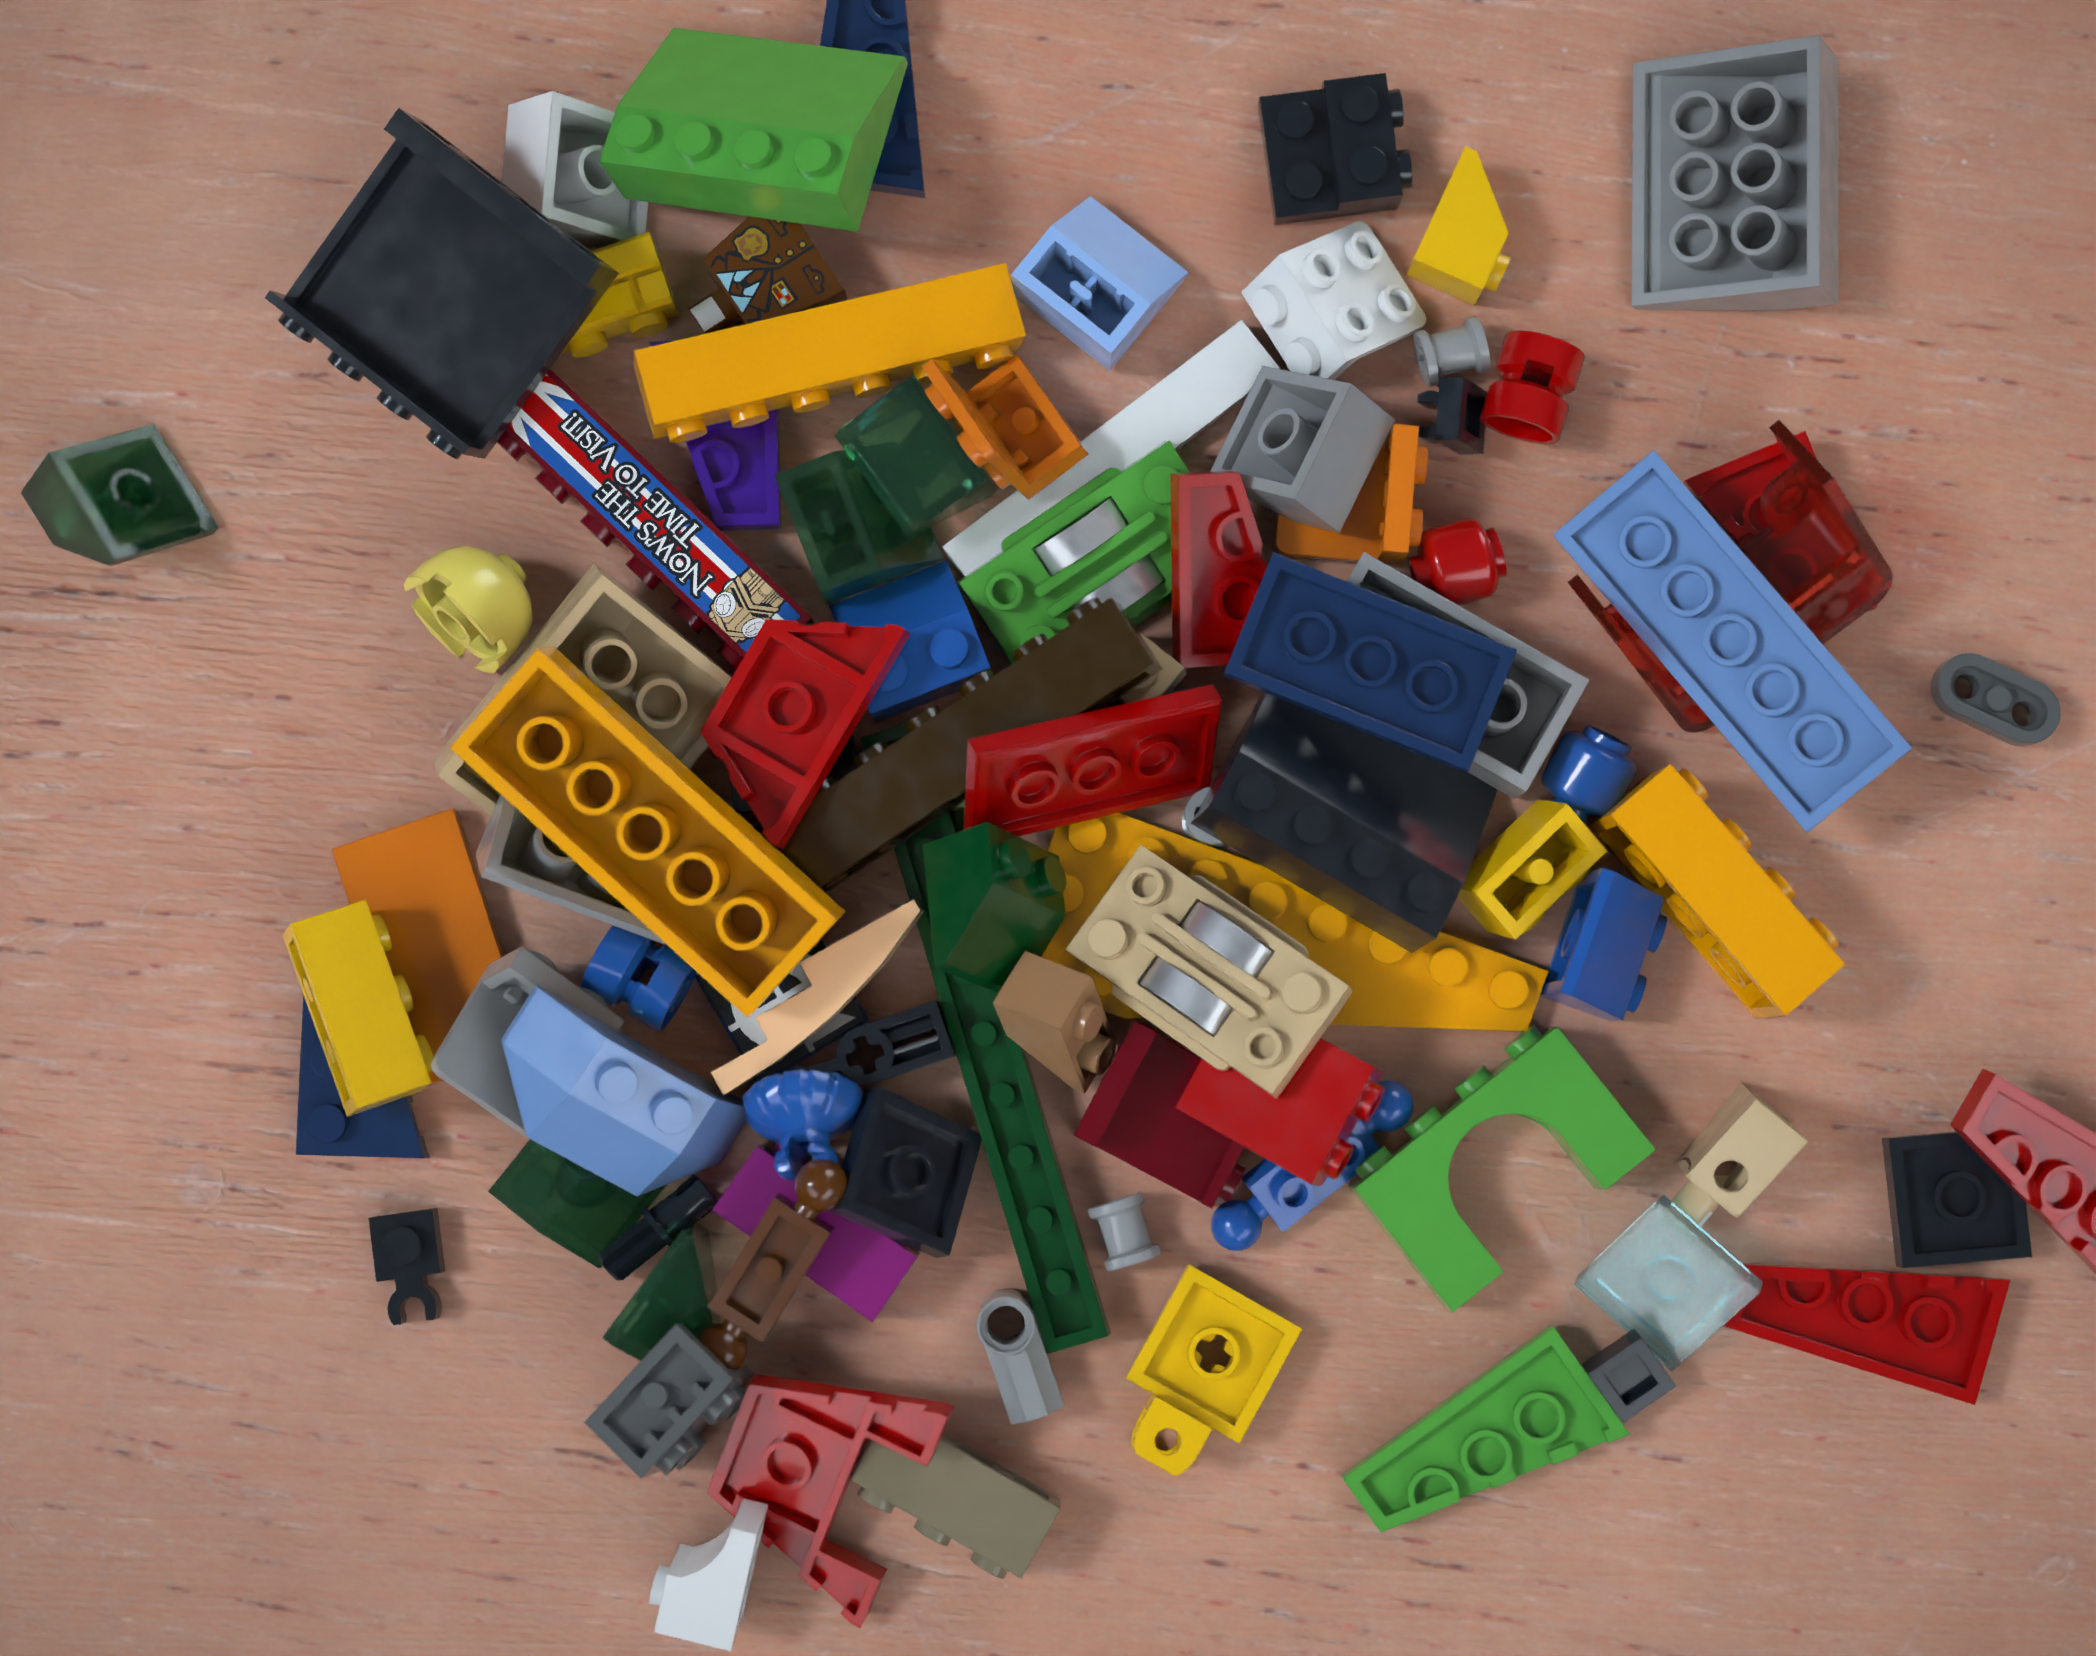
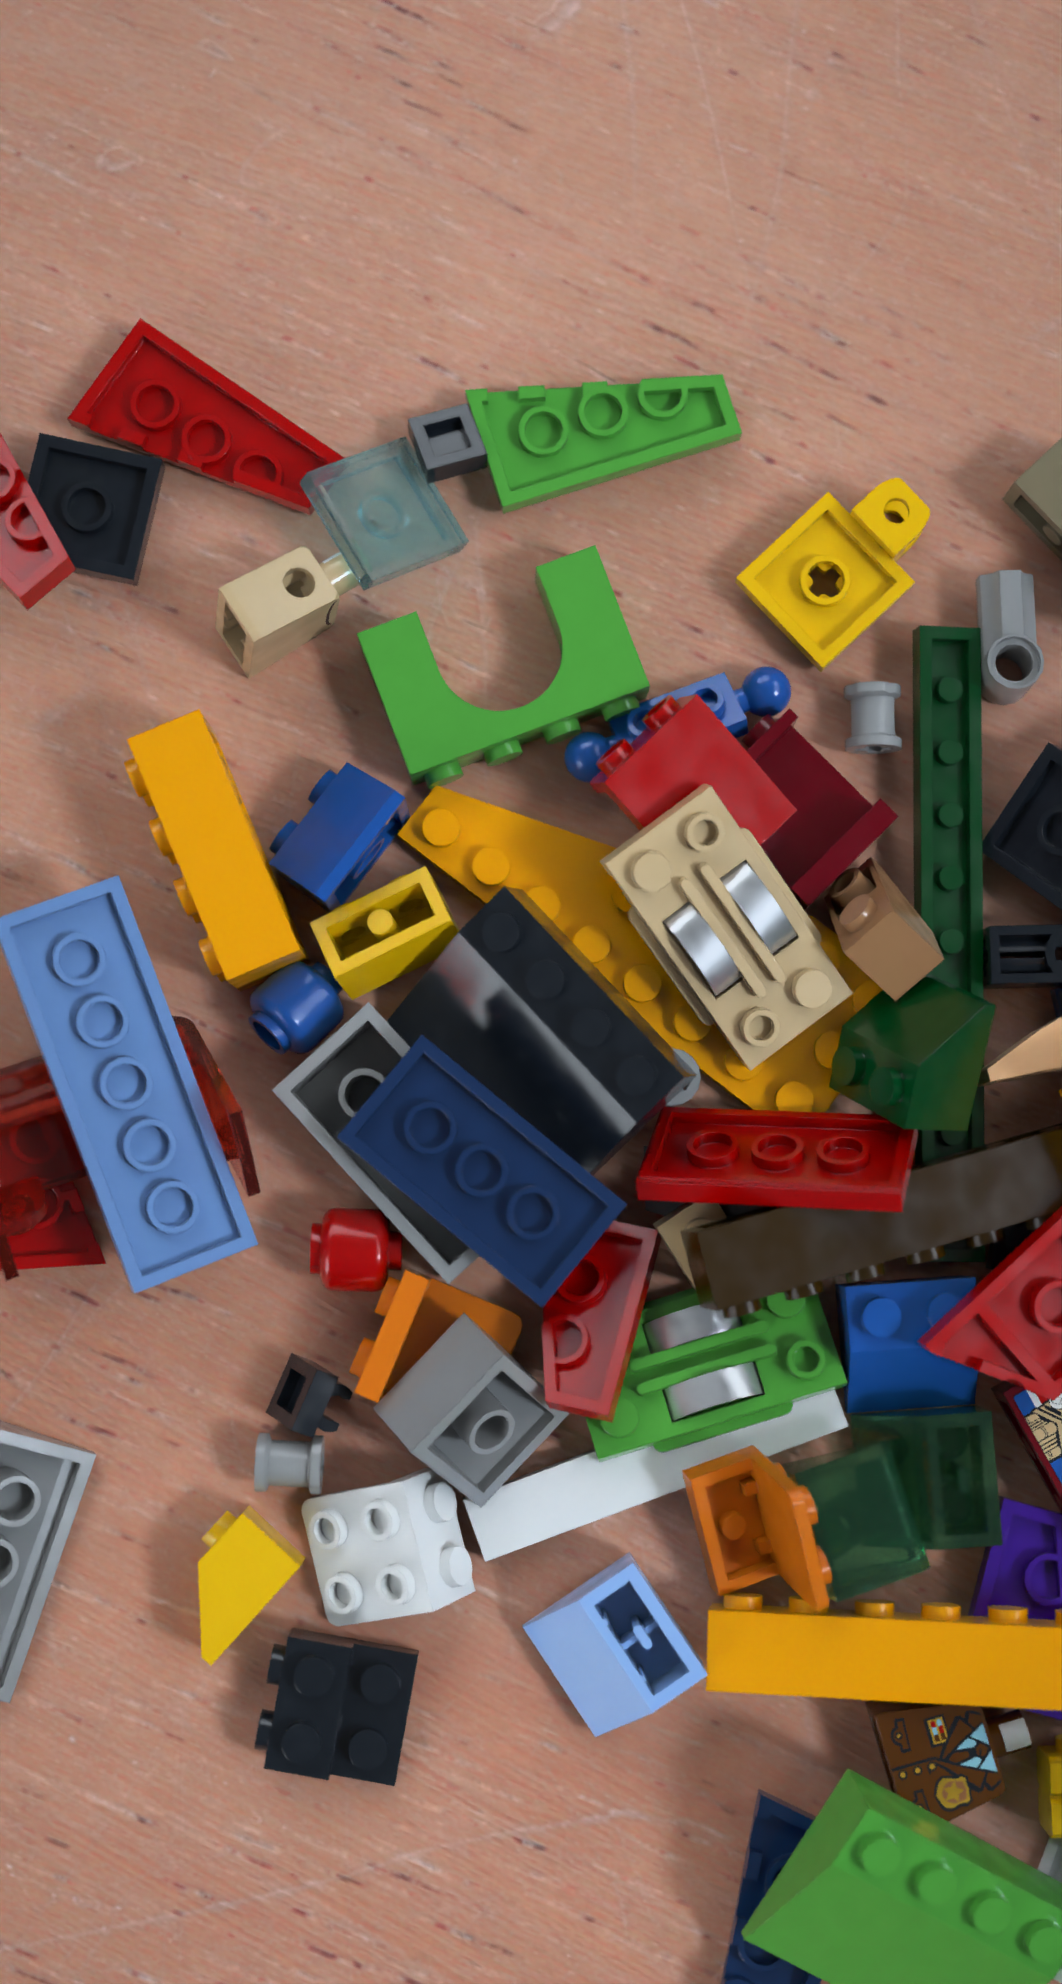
camera: 170 degrees left, 0 degrees up
(1525, 406) = (237, 1382): red wheel -> none

